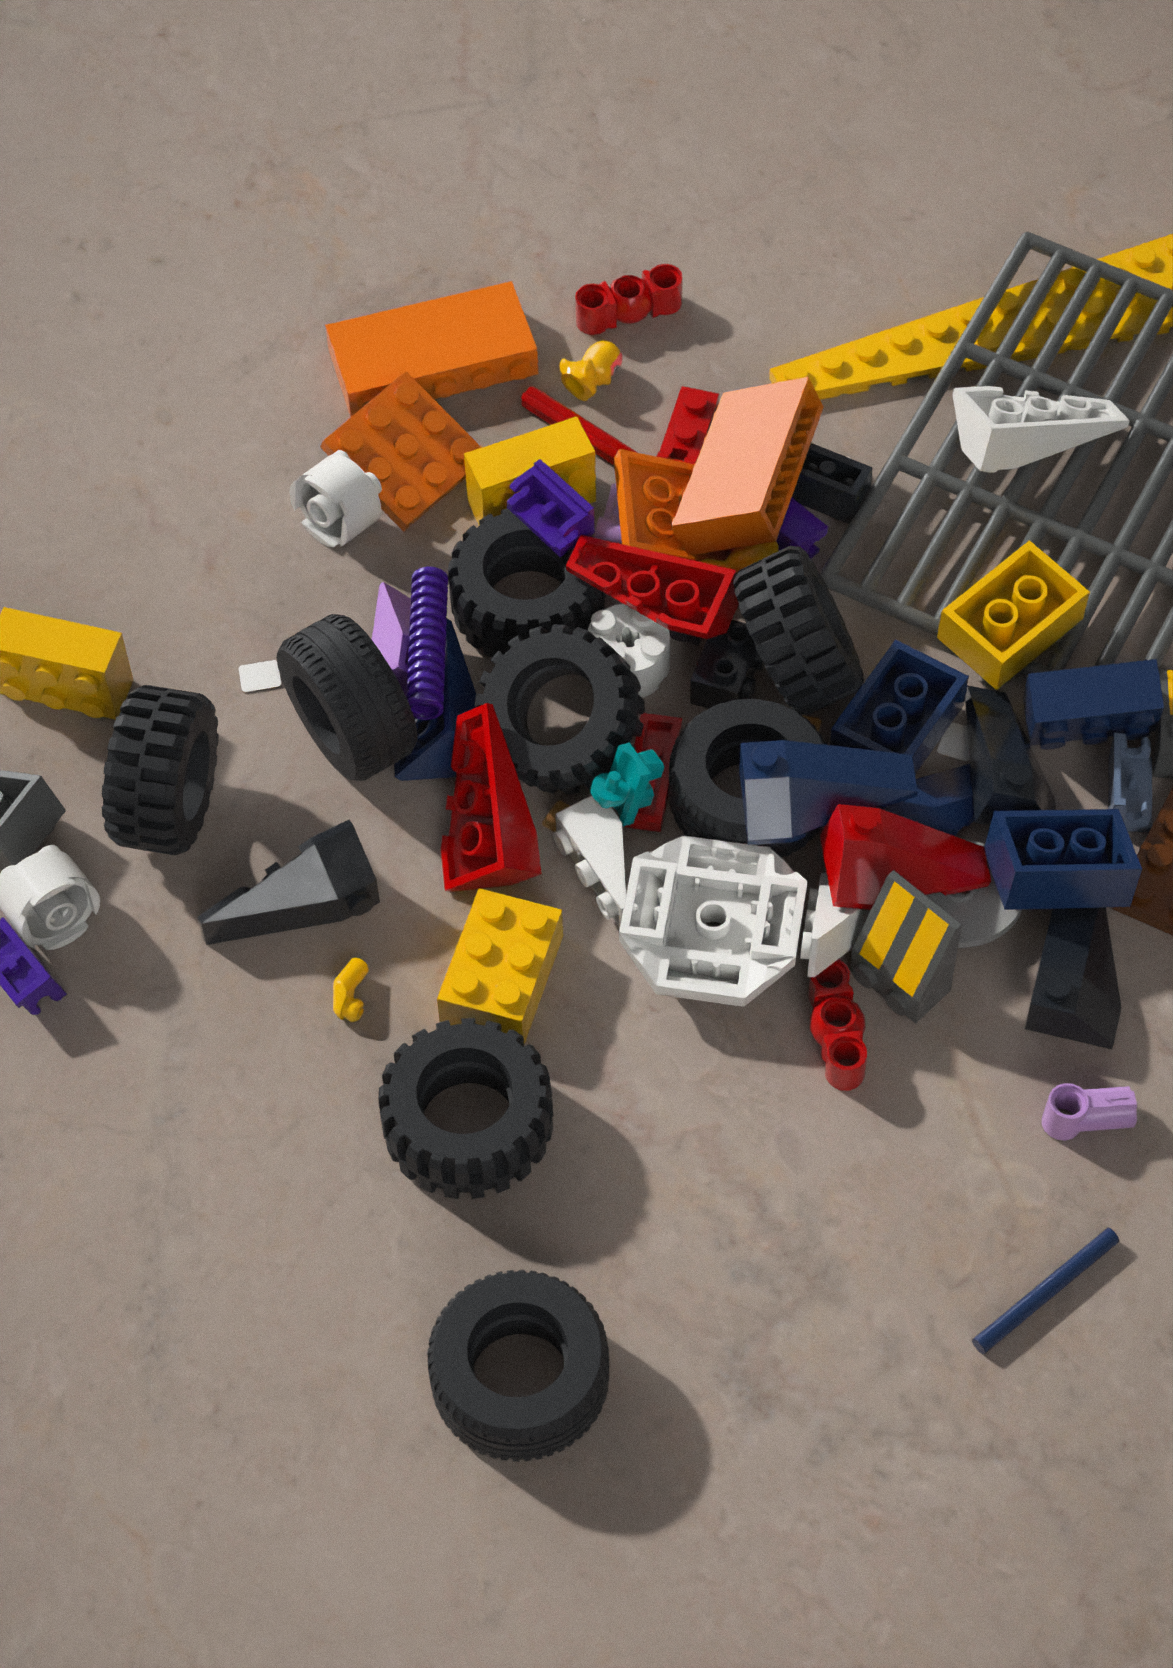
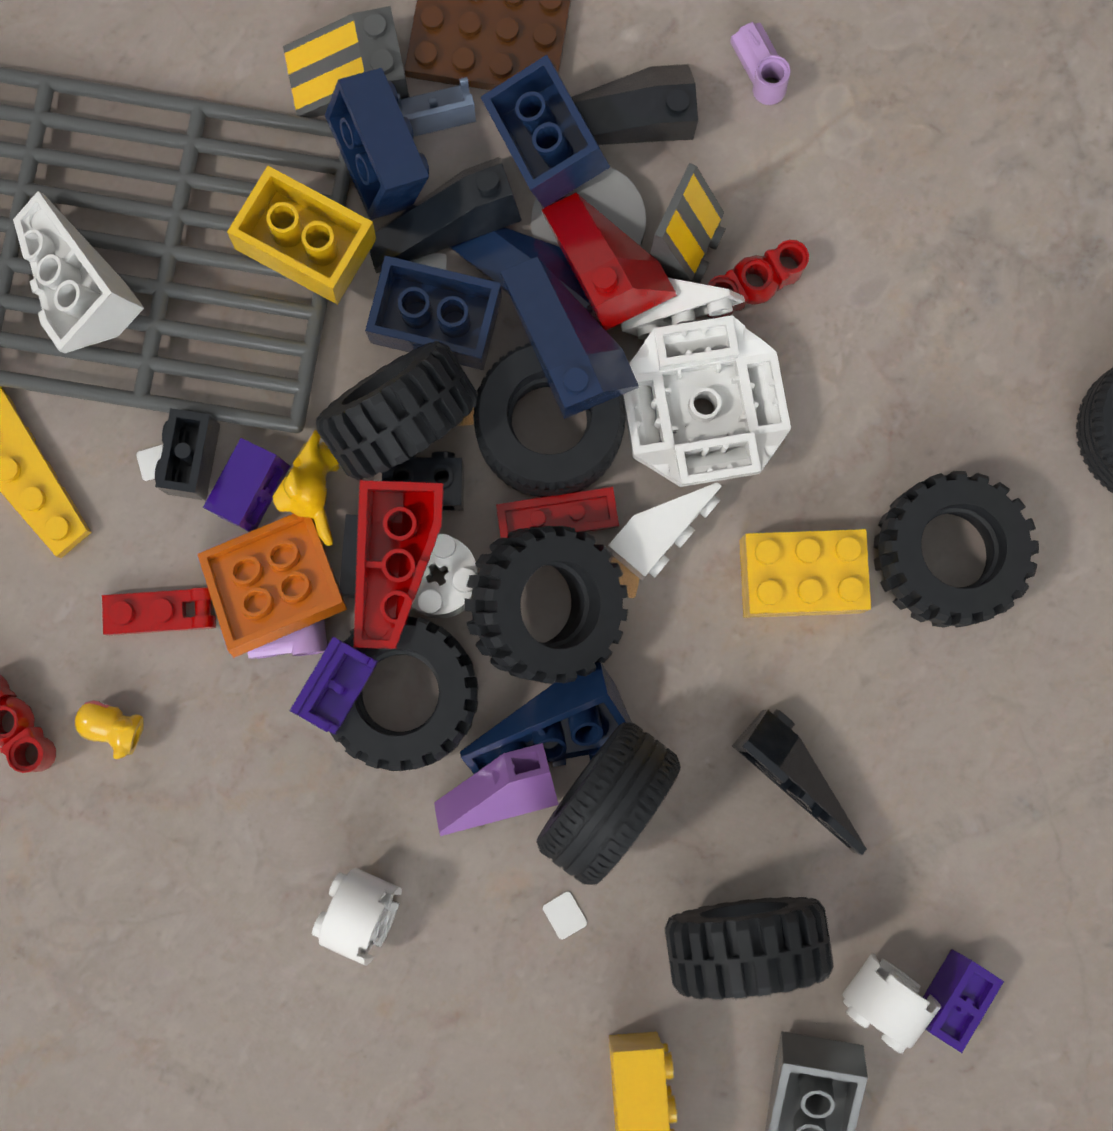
camera: 115 degrees left, 25 degrees up
(344, 988) = (865, 703): yellow arm -> none
(407, 446) = (271, 874): orange plate -> none
(427, 642) = (513, 754): dark purple piece -> none
(441, 342) = (132, 897): orange brick -> none
(490, 823) = (675, 632): red wedge -> none
(496, 466) = (273, 734): yellow brick -> none
(554, 412) = (186, 710): red axle -> none
(628, 782) = (606, 516): teal hips -> none
(748, 467) = (209, 521): brick -> none
(1045, 1291) = (923, 61): dark blue bar -> none

